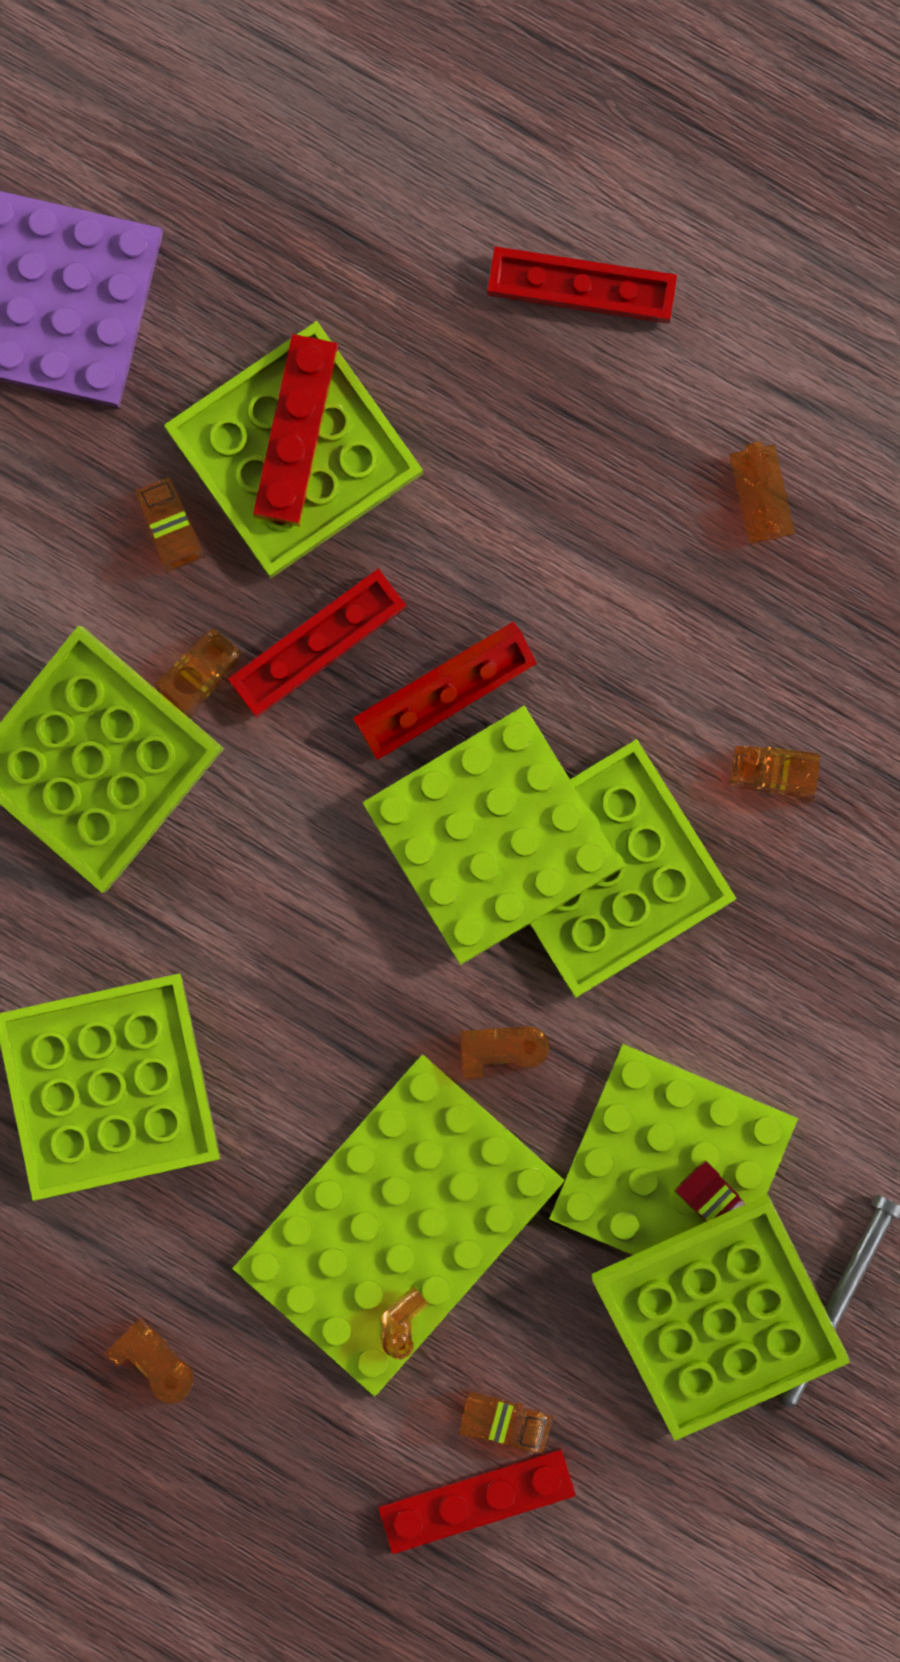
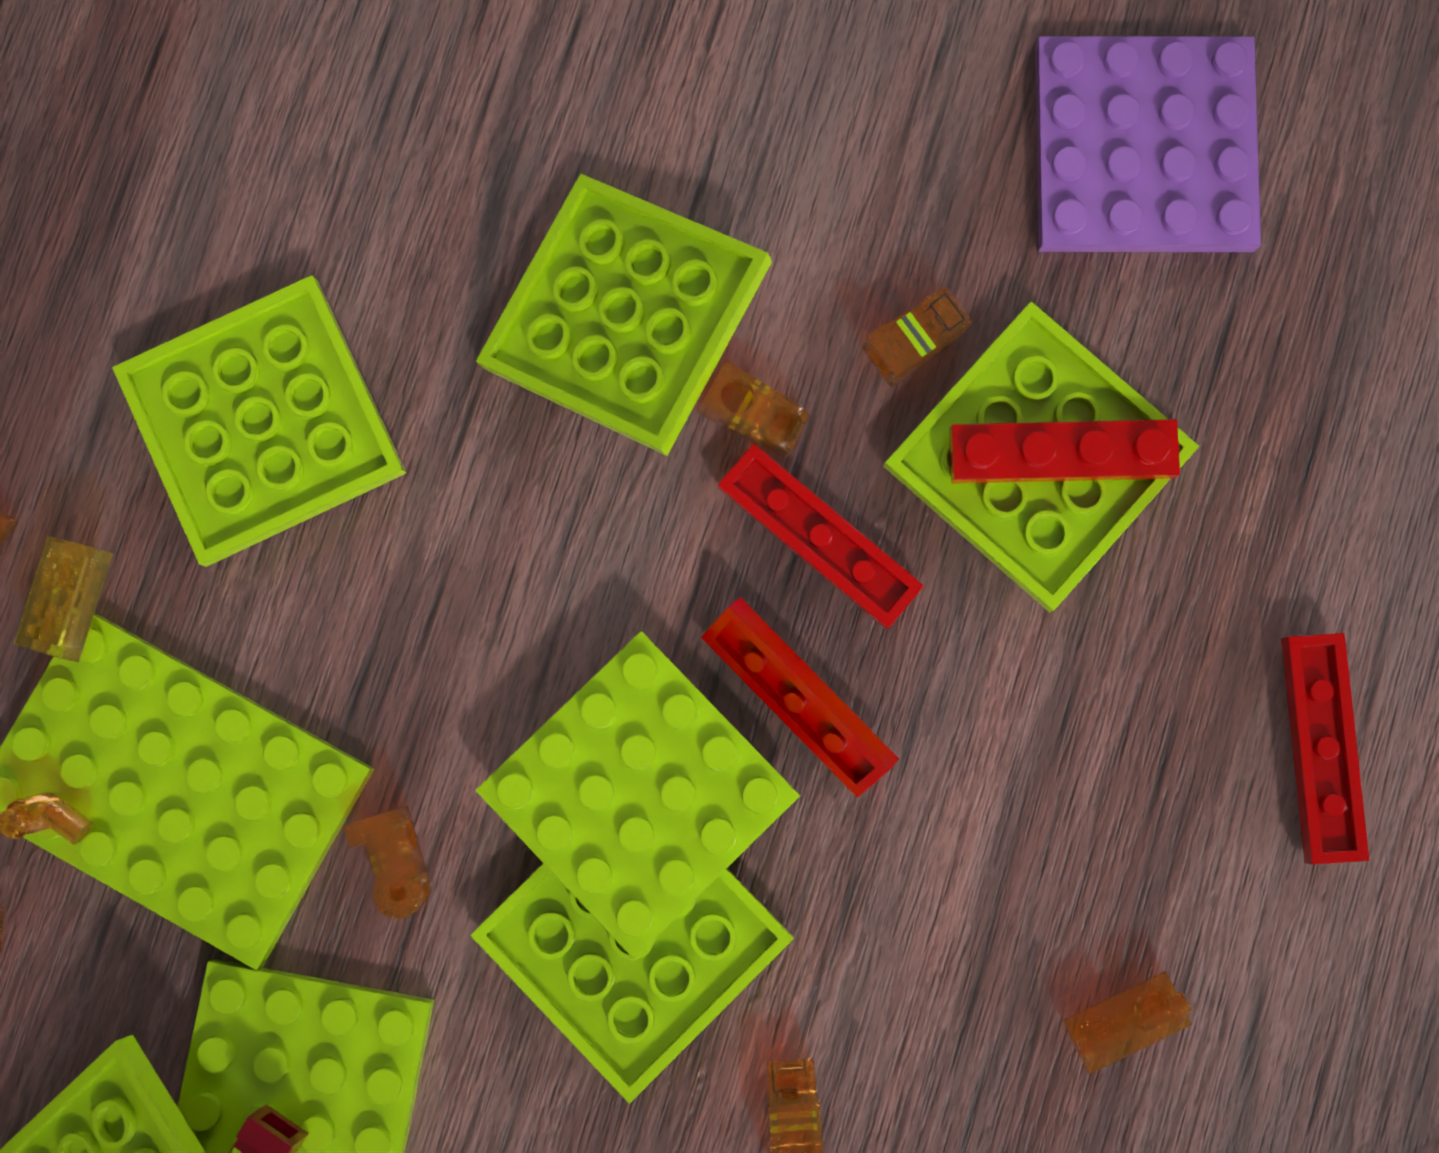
camera: 80 degrees right, 0 degrees up
(223, 1273) = (63, 599): none -> clear yellow bracket

